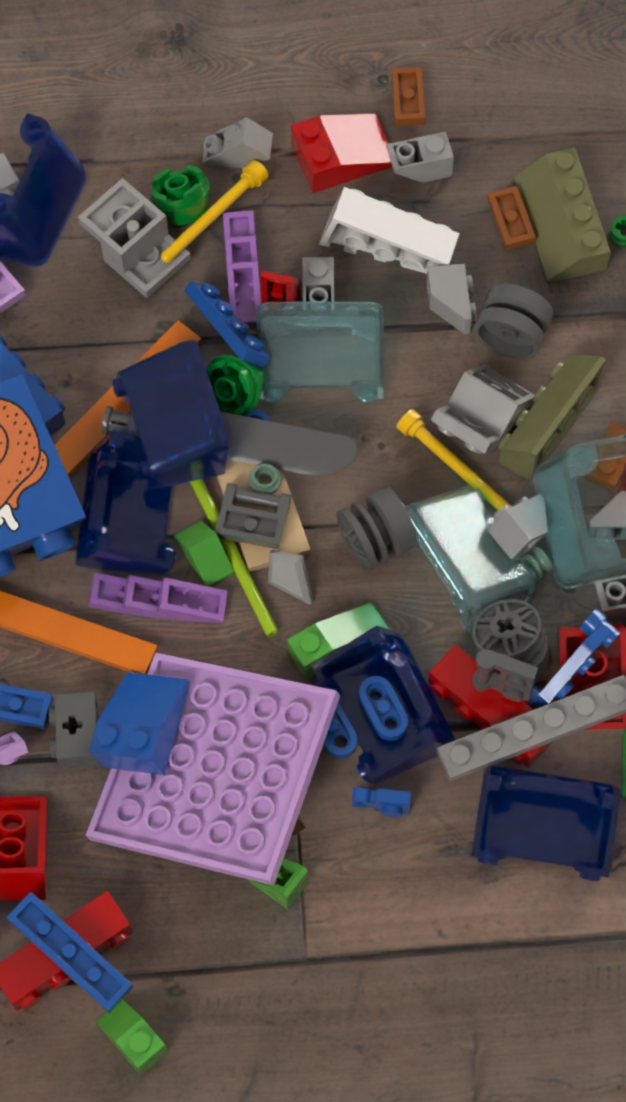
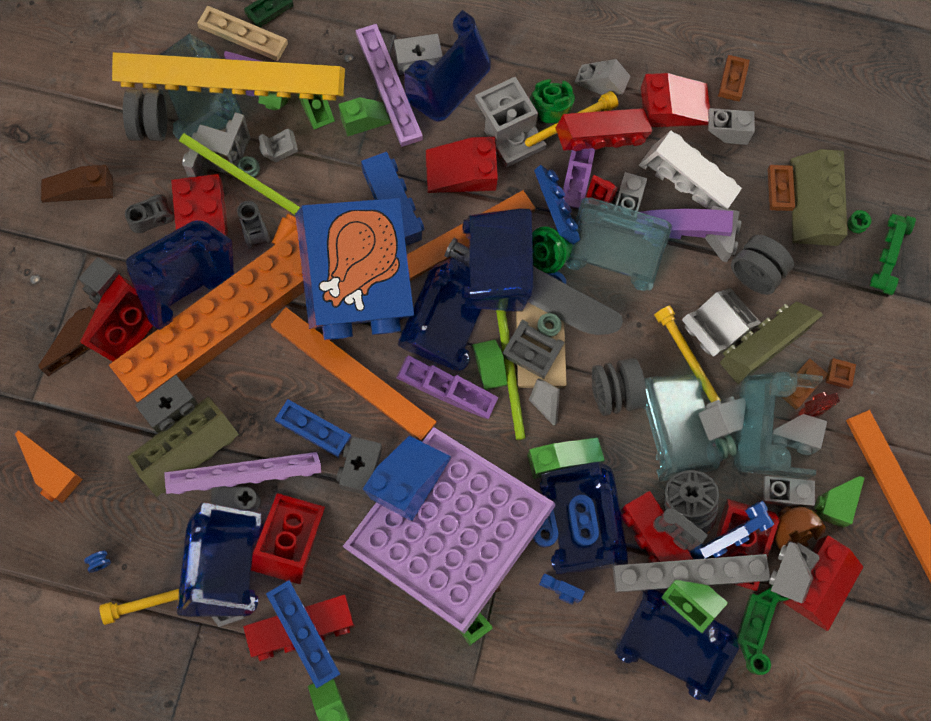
camera: 10 degrees right, 5 degrees up
(89, 313) = (462, 166): none -> red slope
(258, 211) = (603, 129): none -> red brick
(413, 293) = (695, 221): none -> medium lavender slope
(552, 760) = (695, 602): none -> bright green slope

